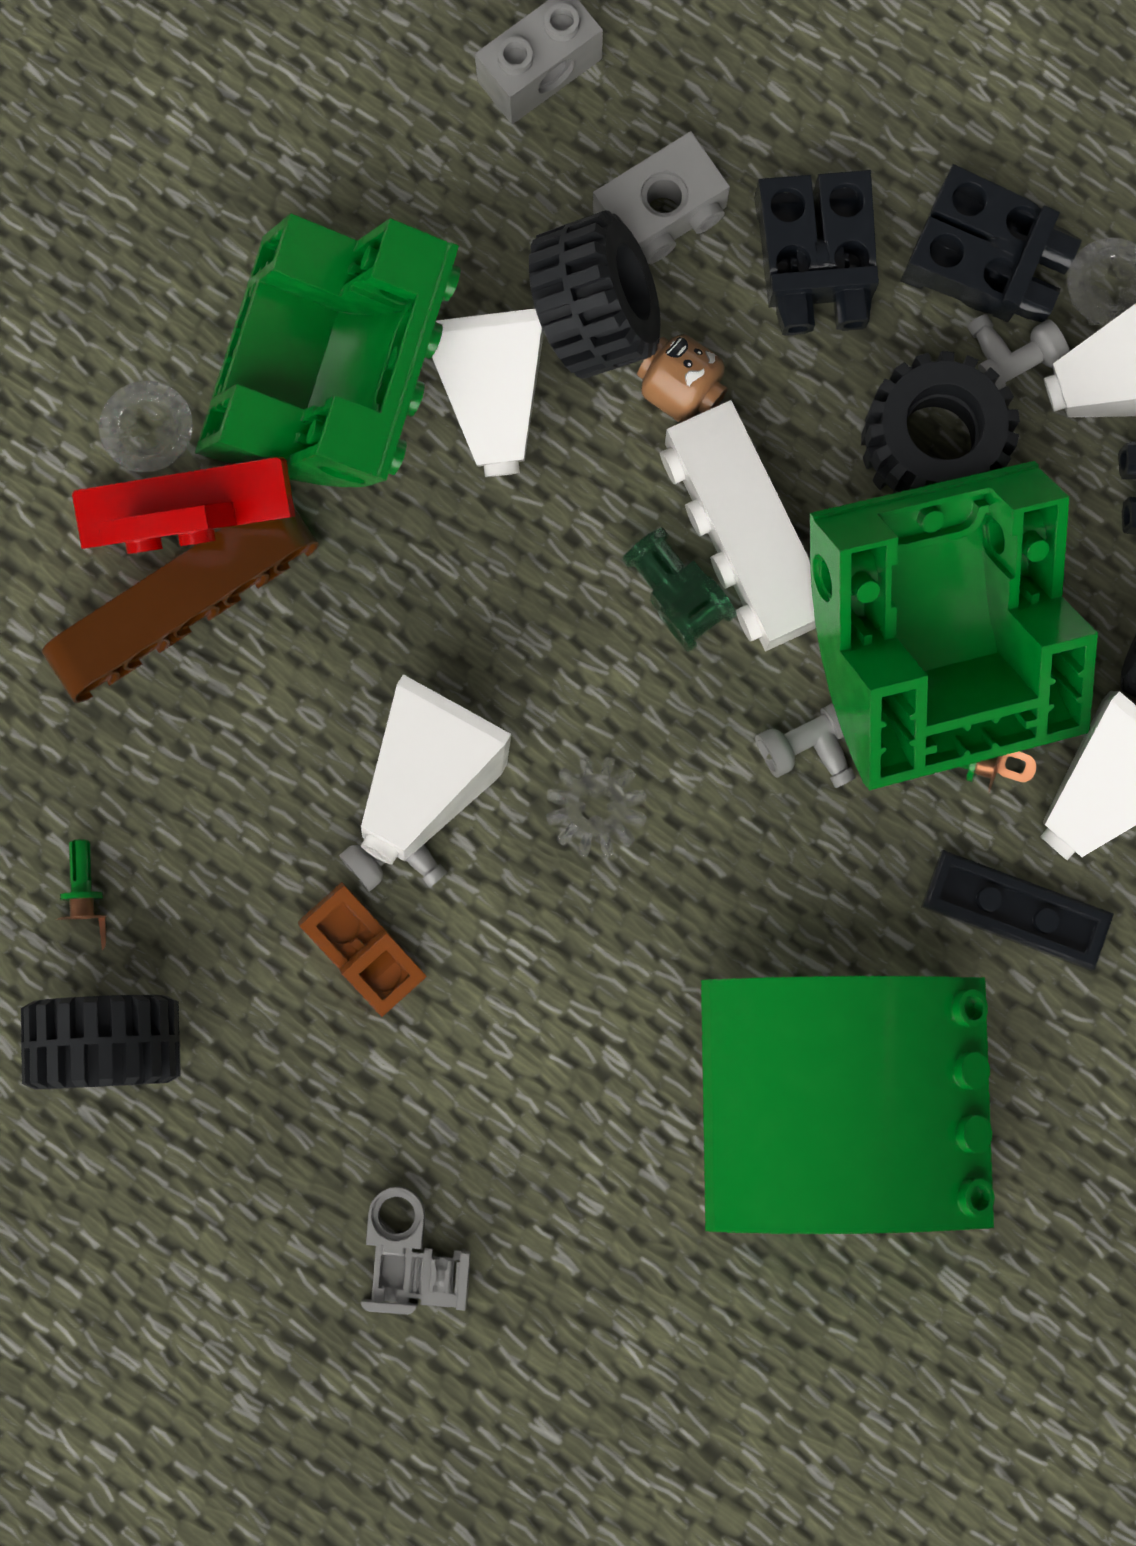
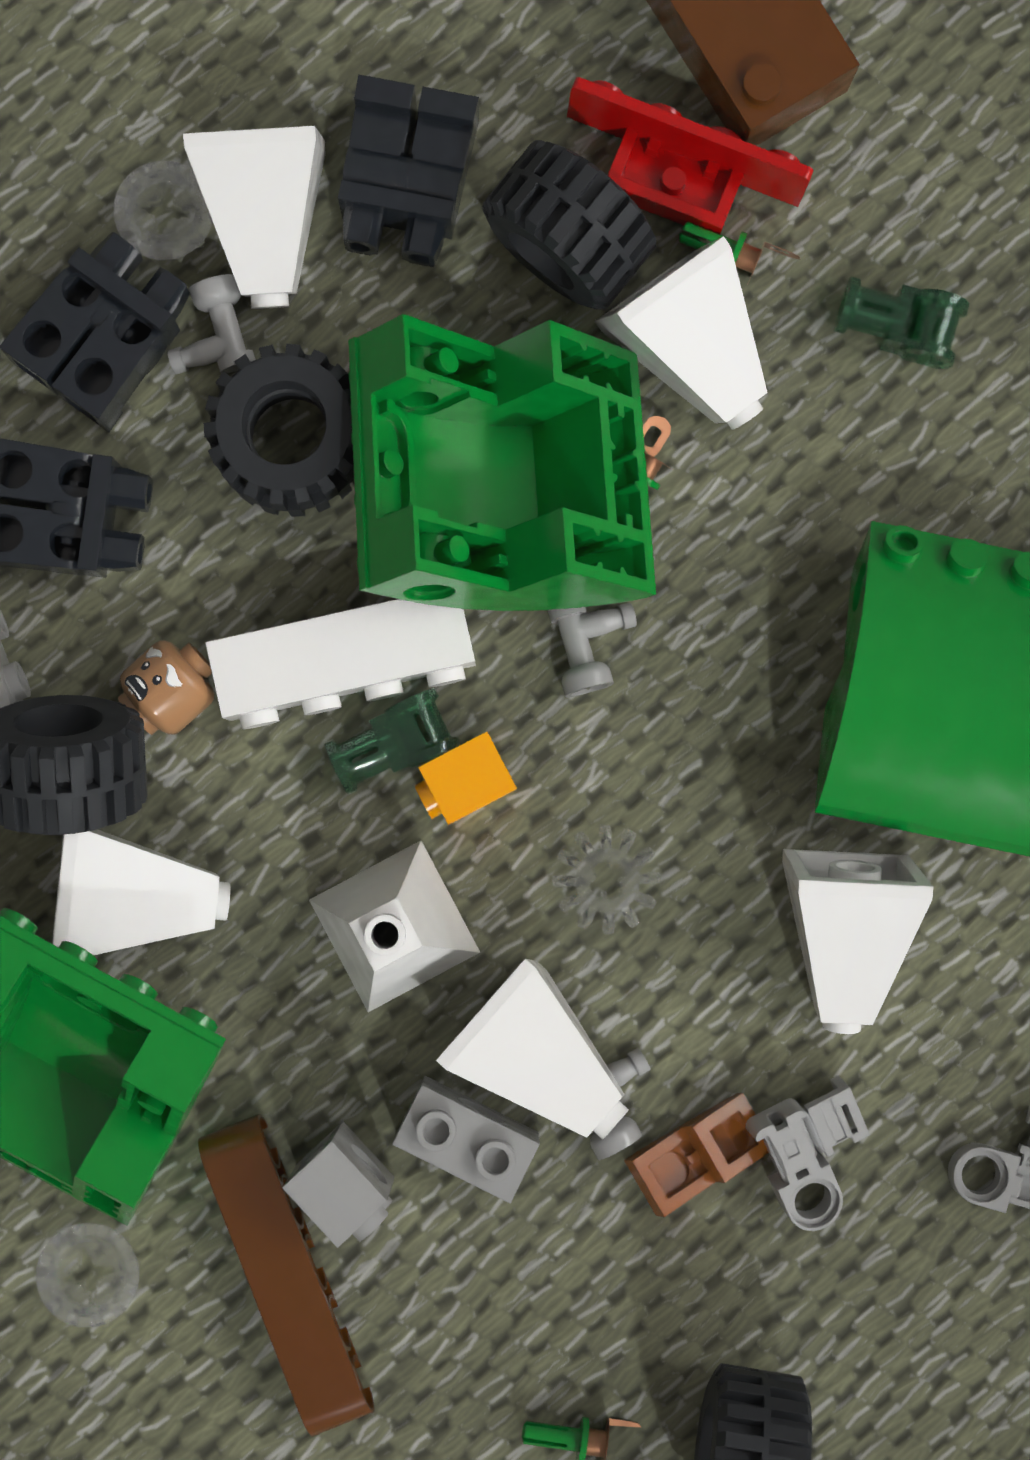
camera: 85 degrees left, 5 degrees up
(183, 505) = (191, 1256): red bracket -> none
(271, 623) = (342, 1186): none -> light grey brick
(334, 729) = (467, 1139): none -> light grey brick
(391, 1036) = (797, 1149): none -> light grey piece
(511, 629) = (413, 899): none -> white slope
(600, 1039) = (854, 927): none -> white slope
(659, 659) = (464, 780): none -> light orange brick
(1017, 910) = (801, 470): black tile -> none

